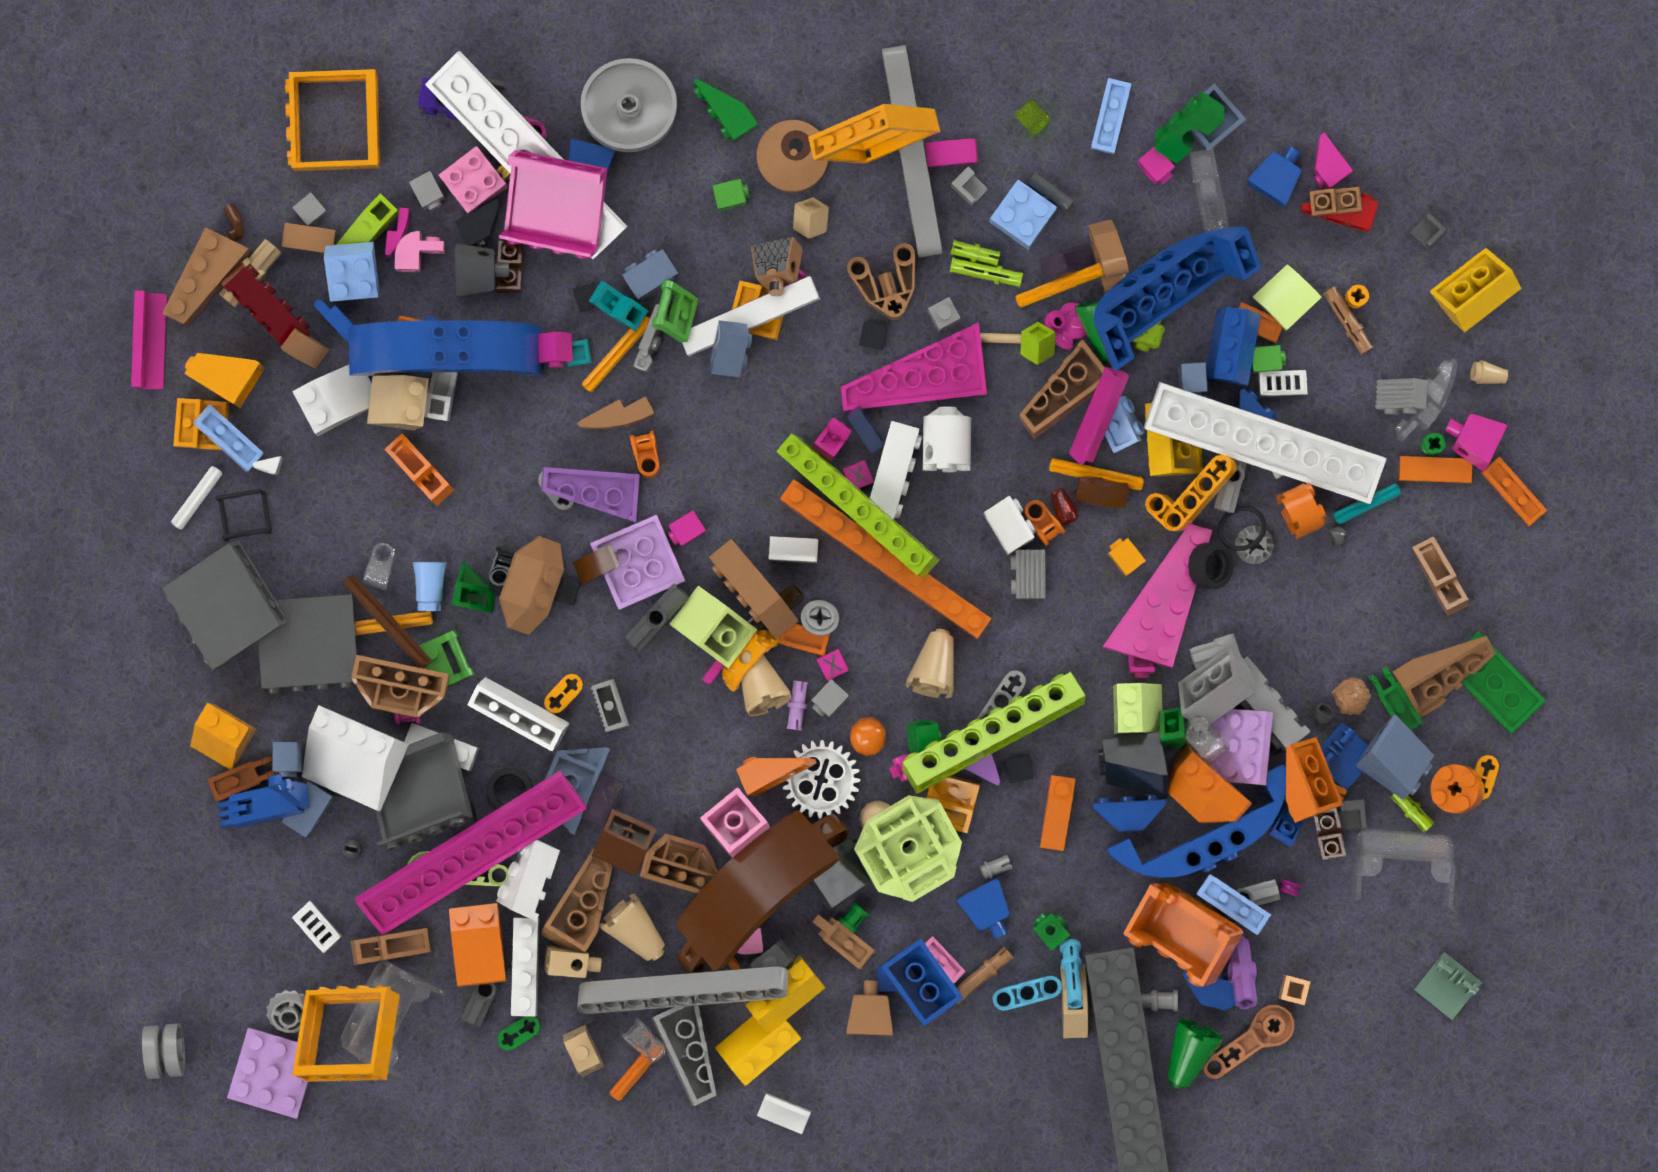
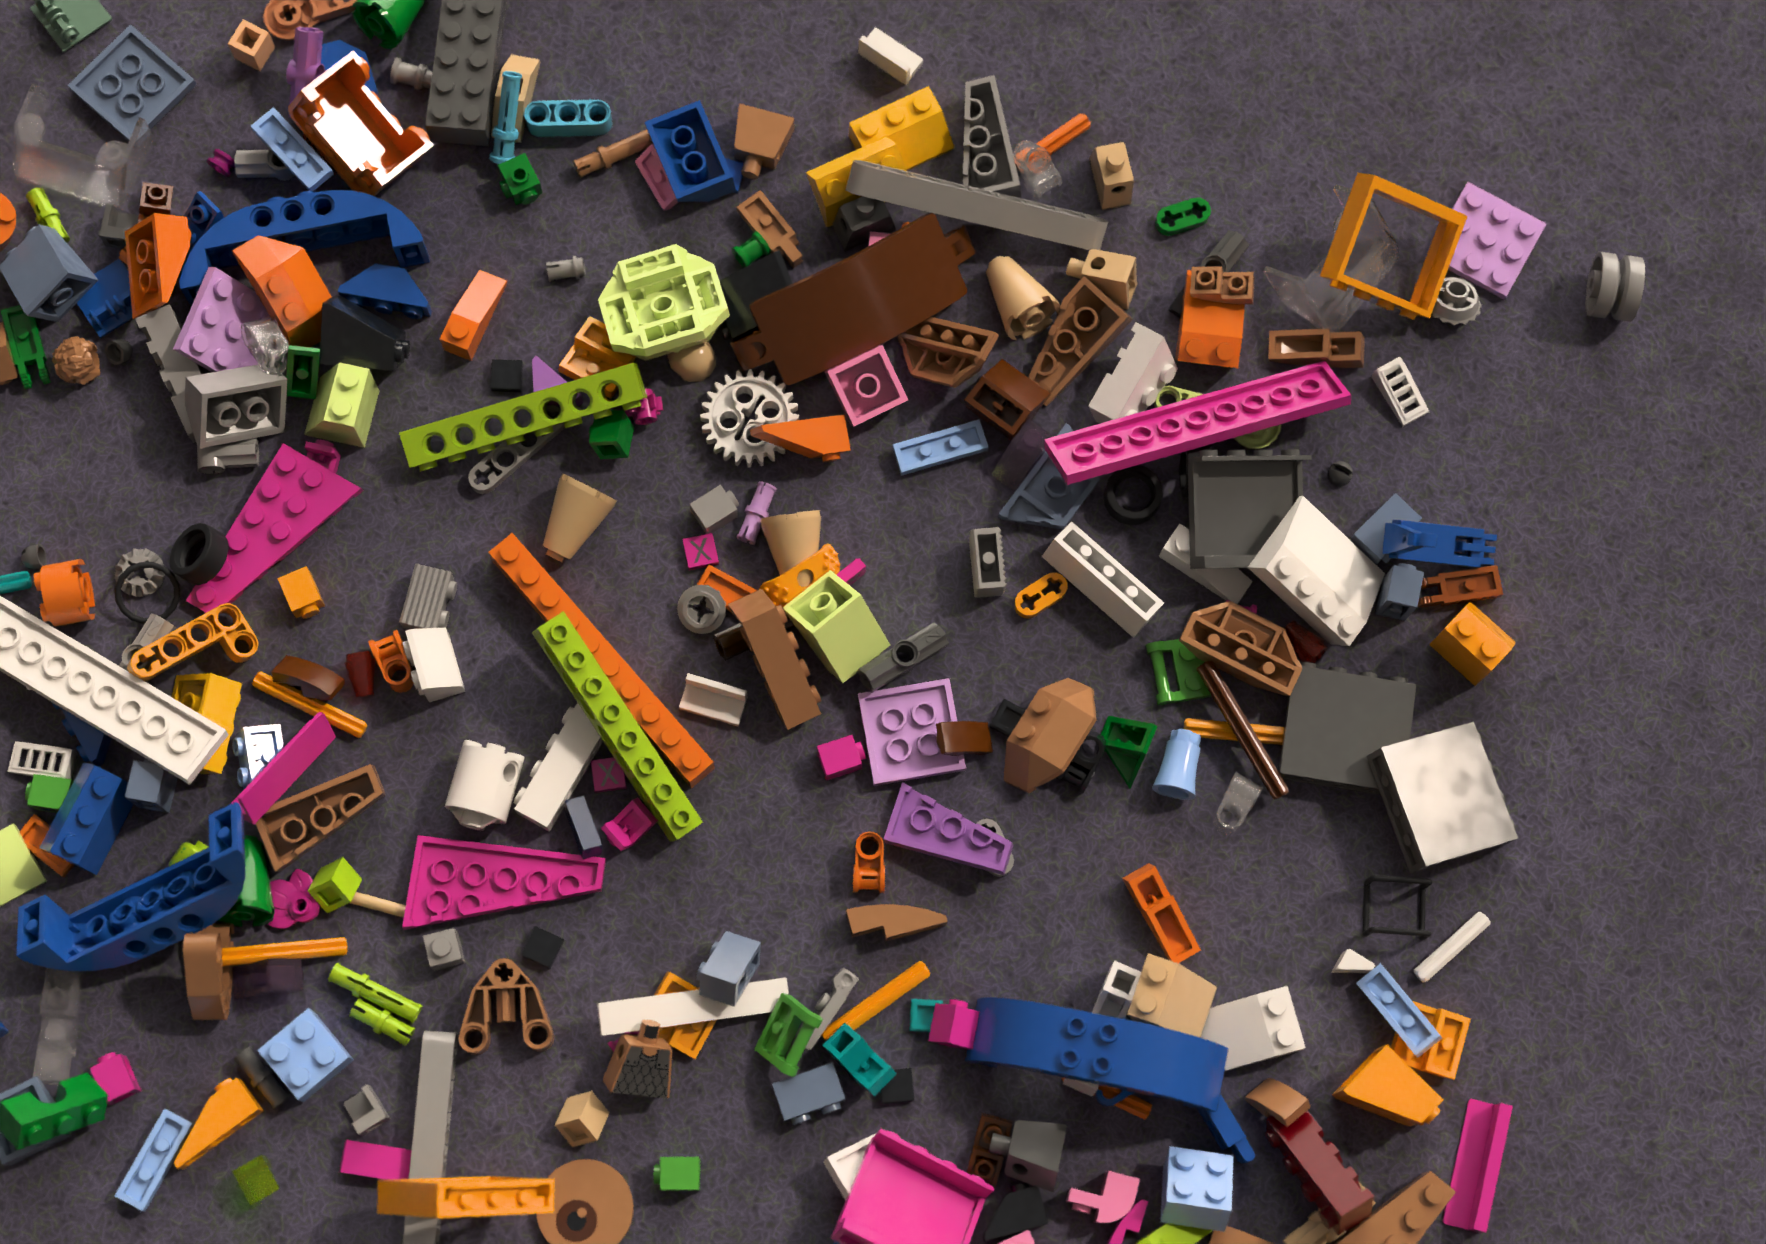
camera: 175 degrees left, 10 degrees down
(353, 704) = (1305, 643): none -> clear red cone
(475, 970) = (1221, 286): none -> medium nougat slope
(525, 967) = (1161, 277): white brick -> none
(667, 792) = (940, 447): none -> light blue plate
(868, 736) = (679, 457): orange hair -> none
(986, 907) = (590, 224): blue torso -> none
(1069, 160) = (221, 1117): none -> light orange slope
(1380, 936) = (131, 82): none -> sand blue plate

